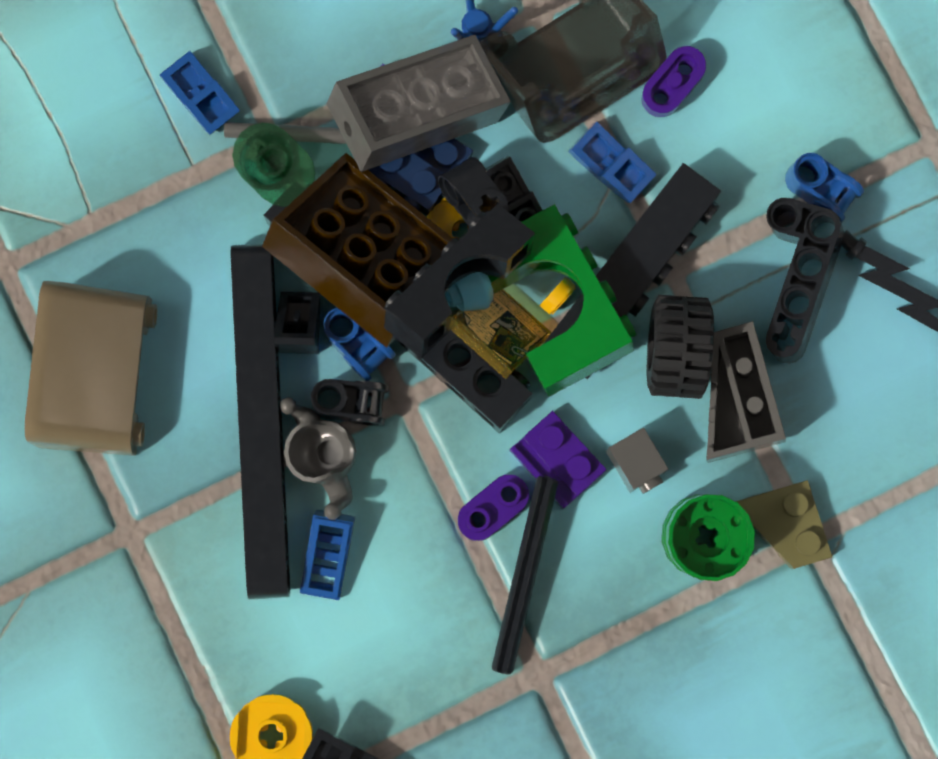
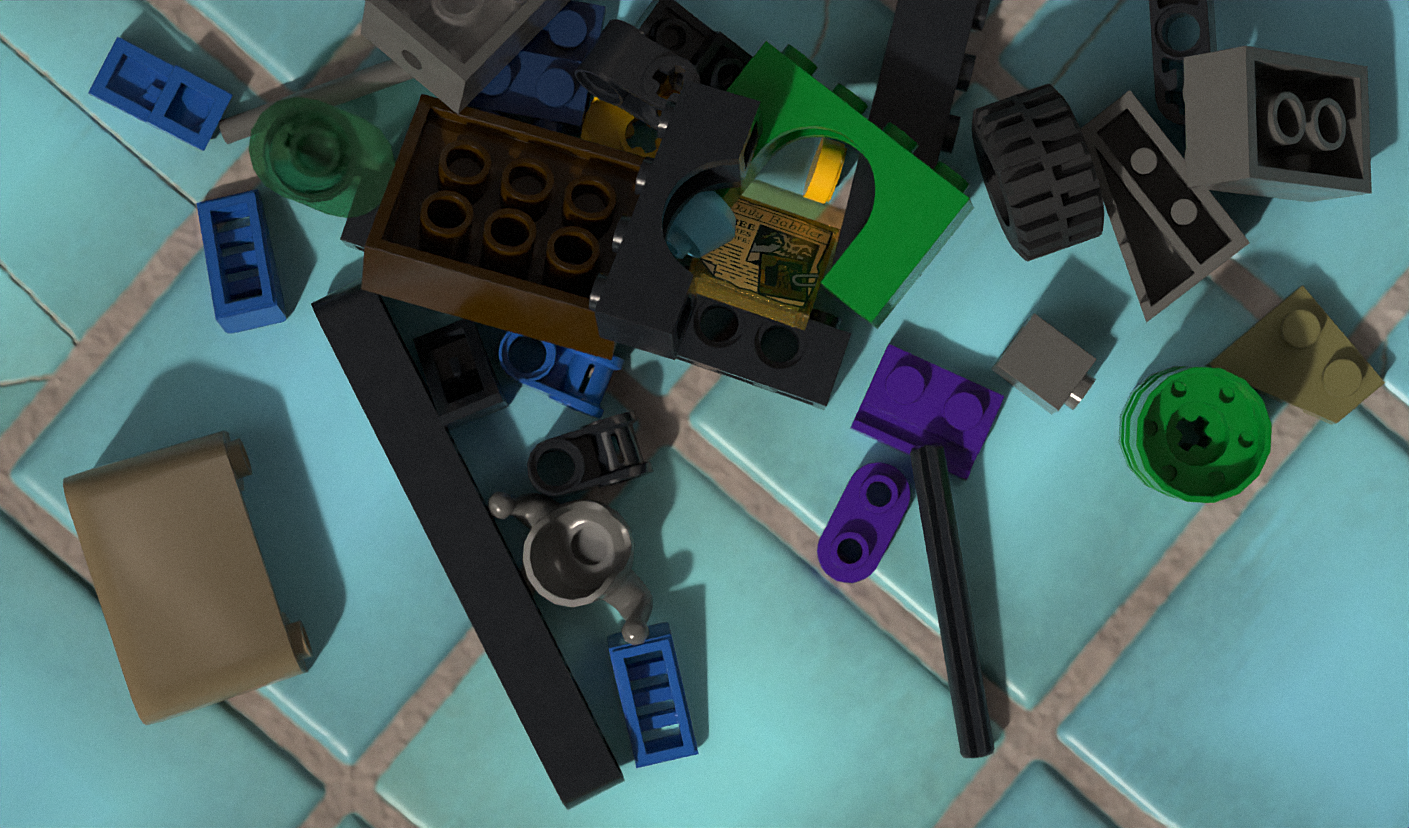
camera: 20 degrees left, 5 degrees up
(197, 230) = (251, 312): none -> blue slope
(830, 378) = (1276, 125): none -> dark grey brick

